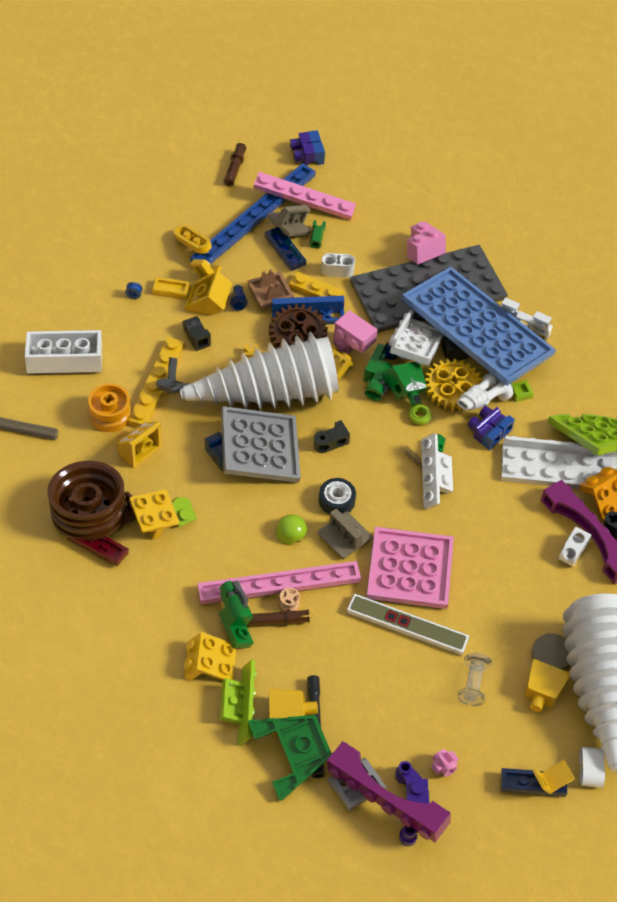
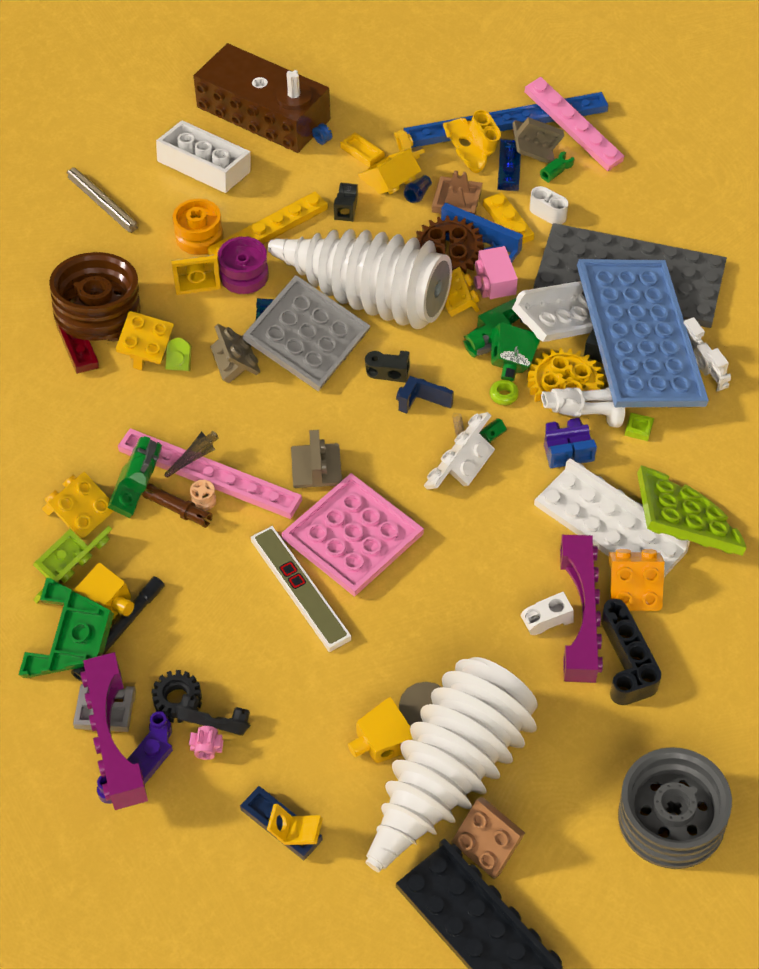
camera: 40 degrees right, 0 degrees up
(68, 283) = (262, 97): none -> reddish brown piece
(164, 383) = (269, 232): dark grey piece -> none
(174, 416) = (243, 265): none -> magenta wheel
(192, 239) = (419, 112): yellow plate -> none
(219, 489) = (233, 354): none -> dark tan bracket
(236, 160) = (537, 60): reddish brown pin -> none
(251, 234) = (481, 134): none -> yellow piece
(262, 568) = (201, 446): none -> clear smoke piece
(291, 529) = (269, 430): lime hair -> none
(309, 148) = (621, 80): dark purple hips -> none
(337, 487) = (341, 424): wheel -> none
(372, 441) = (425, 390): none -> dark blue bracket
(396, 734) = (172, 683): none -> black tyre
(425, 243) = (658, 226): bright pink brick -> none
(450, 739) = (188, 712): none -> black piece
(471, 694) = (328, 668): clear hose -> none
(591, 767) = (352, 849): white beam -> none

